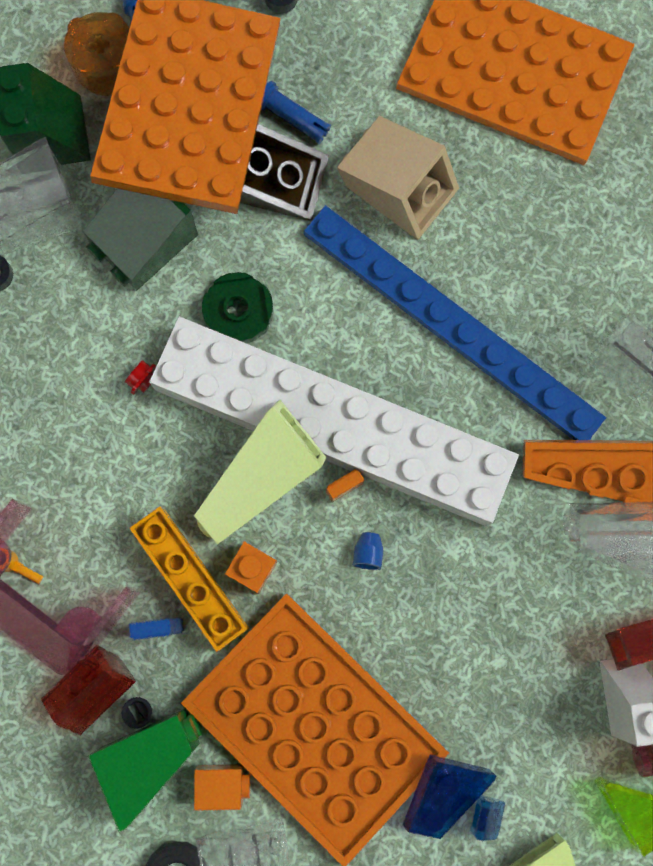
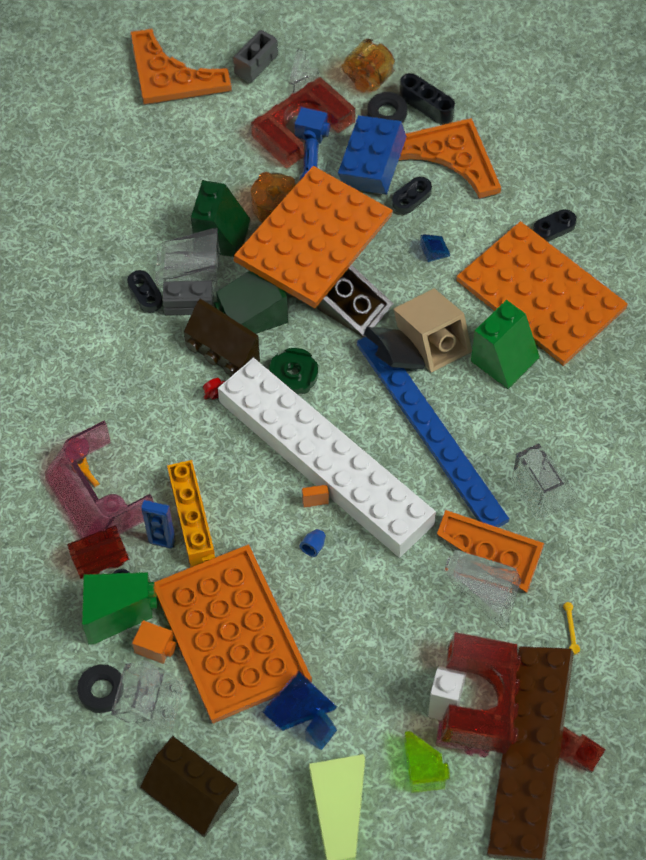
camera: 30 degrees right, 20 degrees down
(45, 252) = (182, 296): none -> dark grey brick
(120, 303) = (220, 338): none -> dark brown slope
(251, 567) = (233, 521): orange brick -> none
(264, 470) = (262, 462): yellowish green slope -> none
(294, 113) = (370, 258): blue pin -> none
(348, 50) = (434, 247): none -> clear blue slope
(367, 226) = (395, 348): none -> black slope
(509, 169) = (504, 345): none -> green slope

